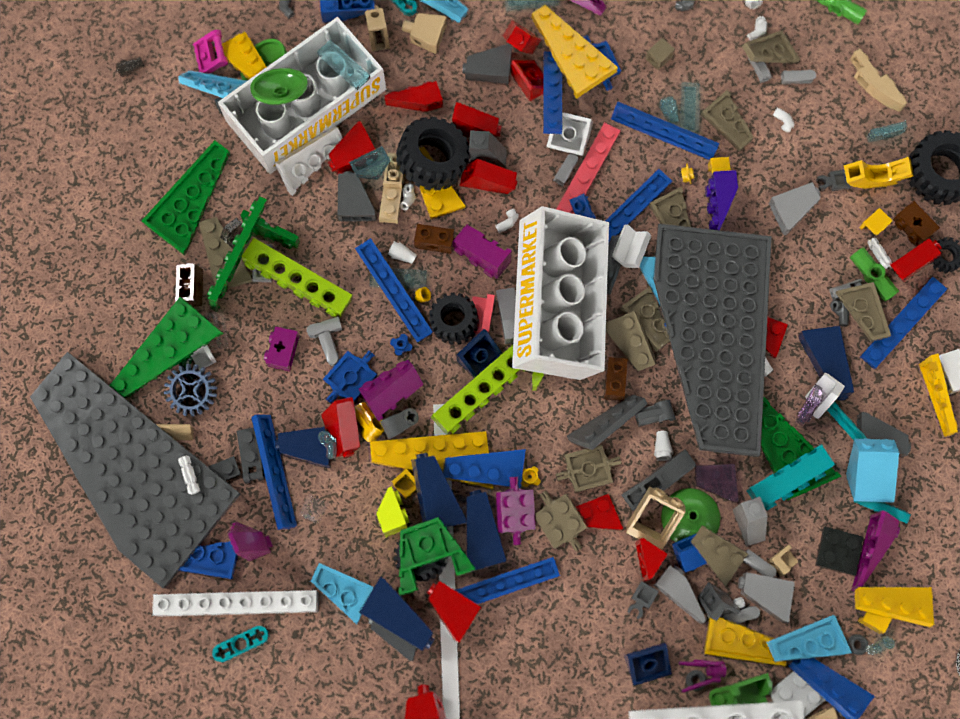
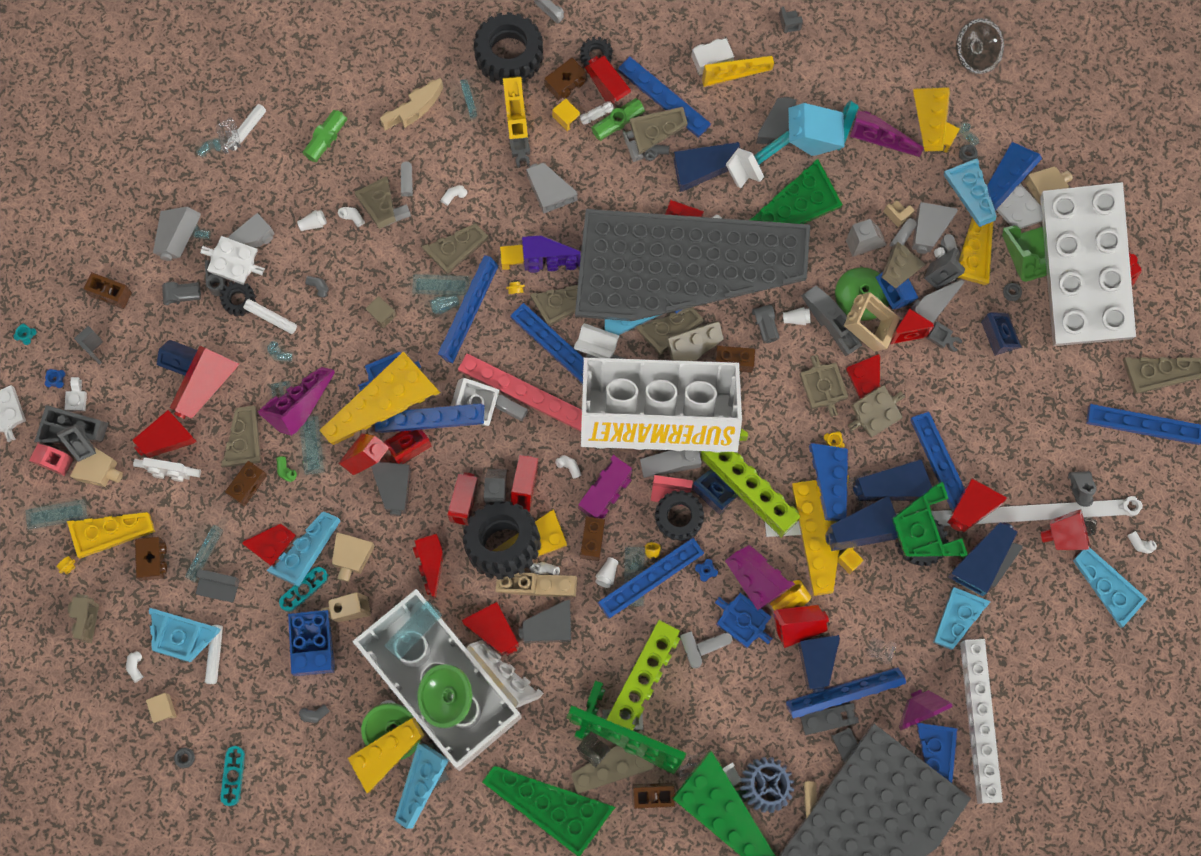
camera: 95 degrees left, 0 degrees up
(189, 475) = (861, 775): white axle -> none
(205, 53) = (378, 800): dark pink plate -> none
(224, 645) = (1025, 717): teal beam -> none
(283, 359) = (709, 684): magenta brick -> none
(329, 442) = (818, 633): clear light blue arm -> none
(371, 164) = (511, 606): clear light blue slope -> none
(390, 515) = (885, 570): neon yellow slope -> none
(399, 422) = (792, 566): dark grey piece -> none
(515, 510) = (872, 451): magenta plate -> none
(582, 206) = (561, 388): blue hinge -> none
(604, 425) = (782, 370): dark grey wing -> none
(715, 669) = (1003, 275): magenta plant -> none
(718, 480) = (826, 267): clear purple wing -> none
(792, 477) = (826, 199): teal wedge -> none
(813, 400) = (754, 180): clear purple wing -> none
(839, 551) = (885, 164): pearl dark grey plate -> none

